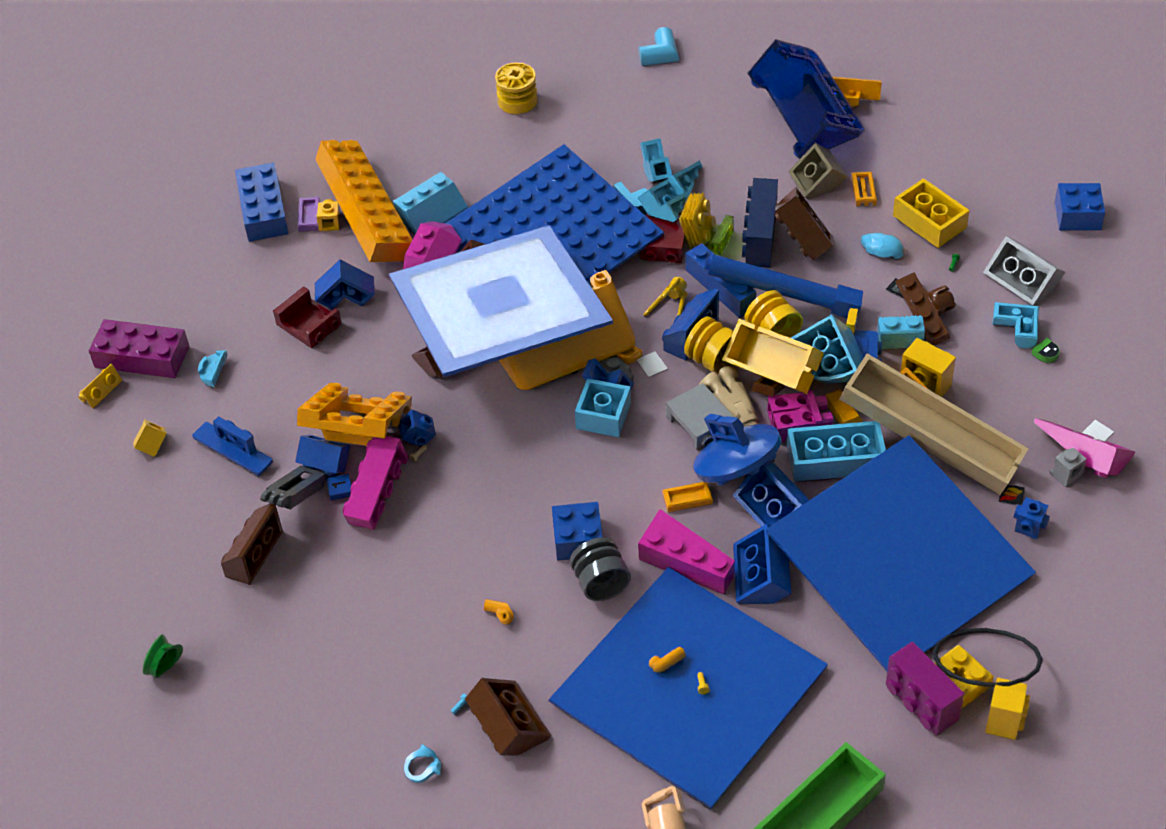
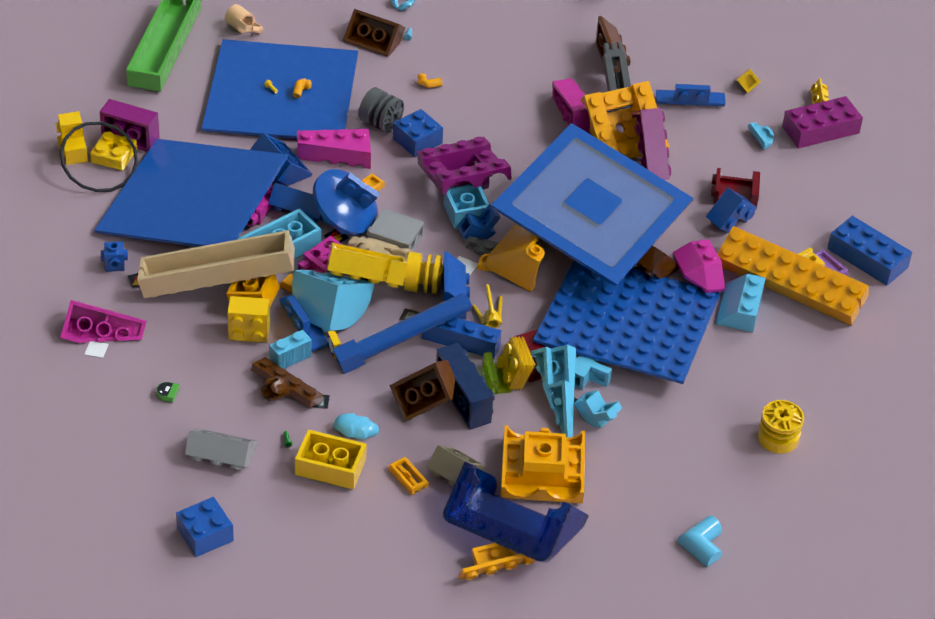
camera: 140 degrees right, 5 degrees down
(351, 371) = (652, 141): none -> magenta wedge
(581, 420) = (455, 164): none -> magenta piece
(729, 136) = (550, 469): none -> light orange piece
(775, 314) = (390, 308): yellow wheel -> none
(1021, 317) = (200, 403): medium azure brick -> none
(1065, 464) = (105, 298): light grey brick -> none

